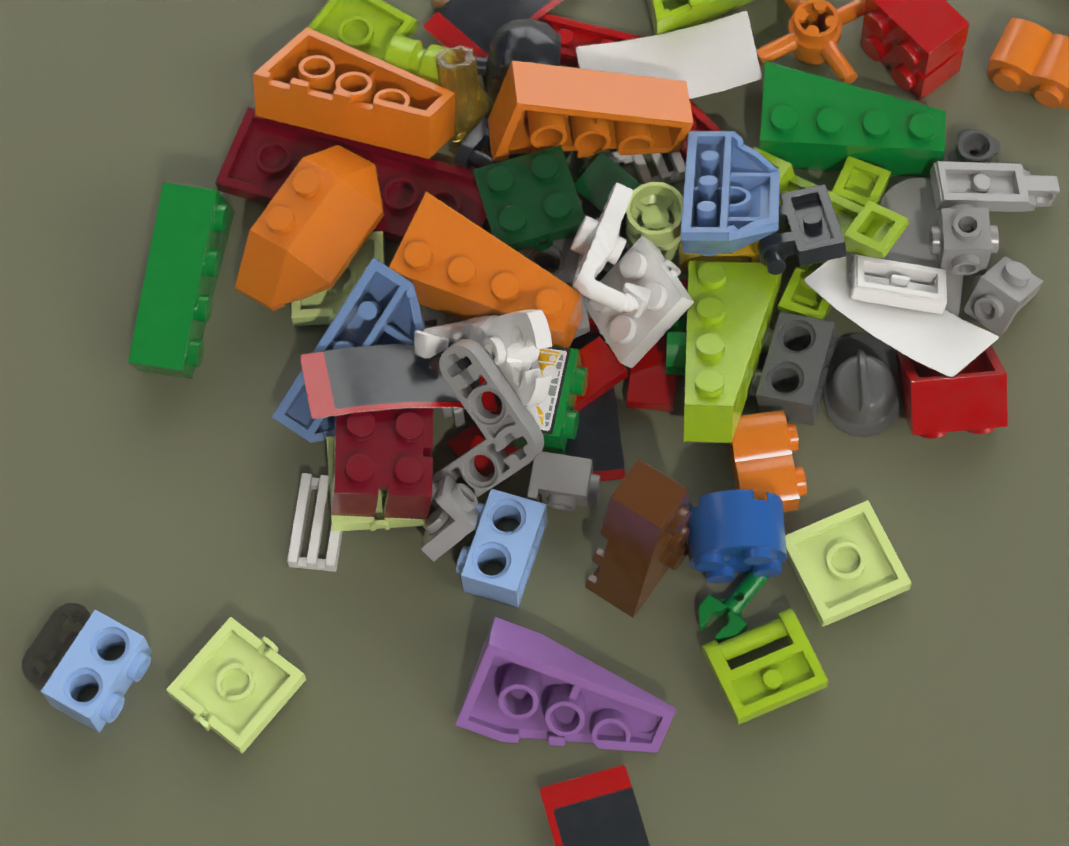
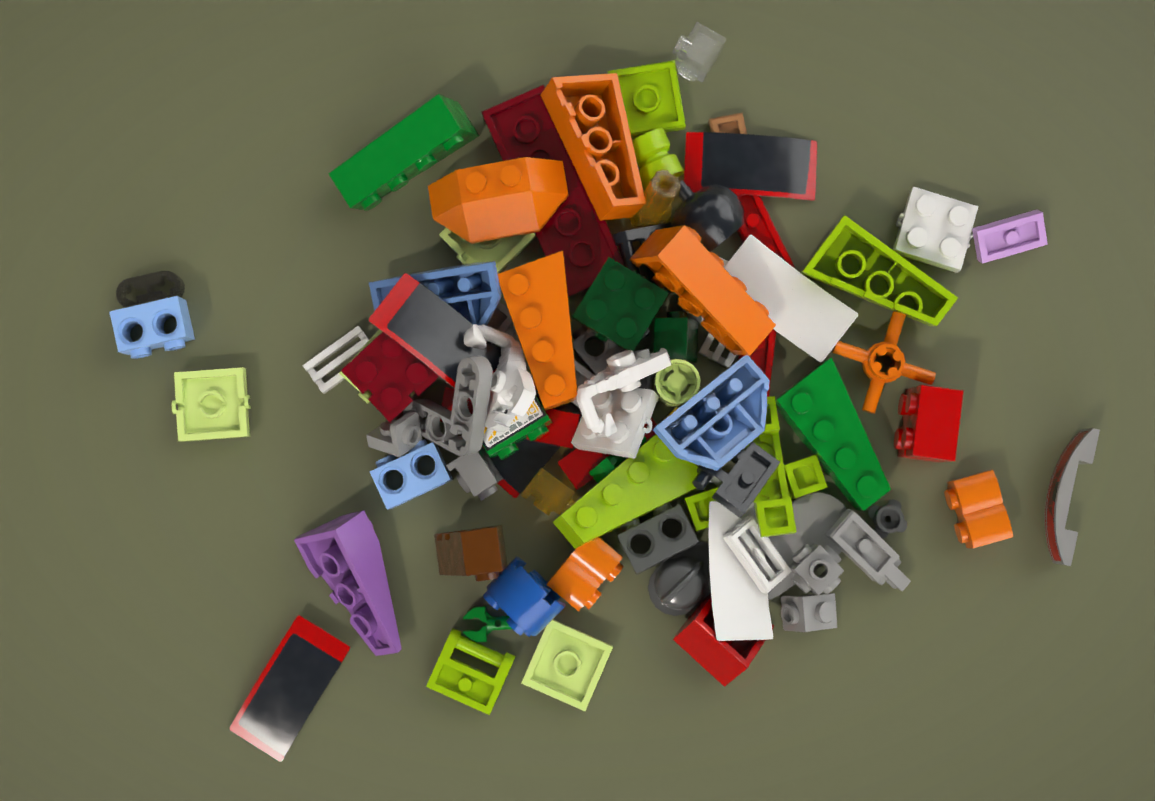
camera: 40 degrees right, 20 degrees up
(650, 430) = (549, 493): none -> clear yellow brick

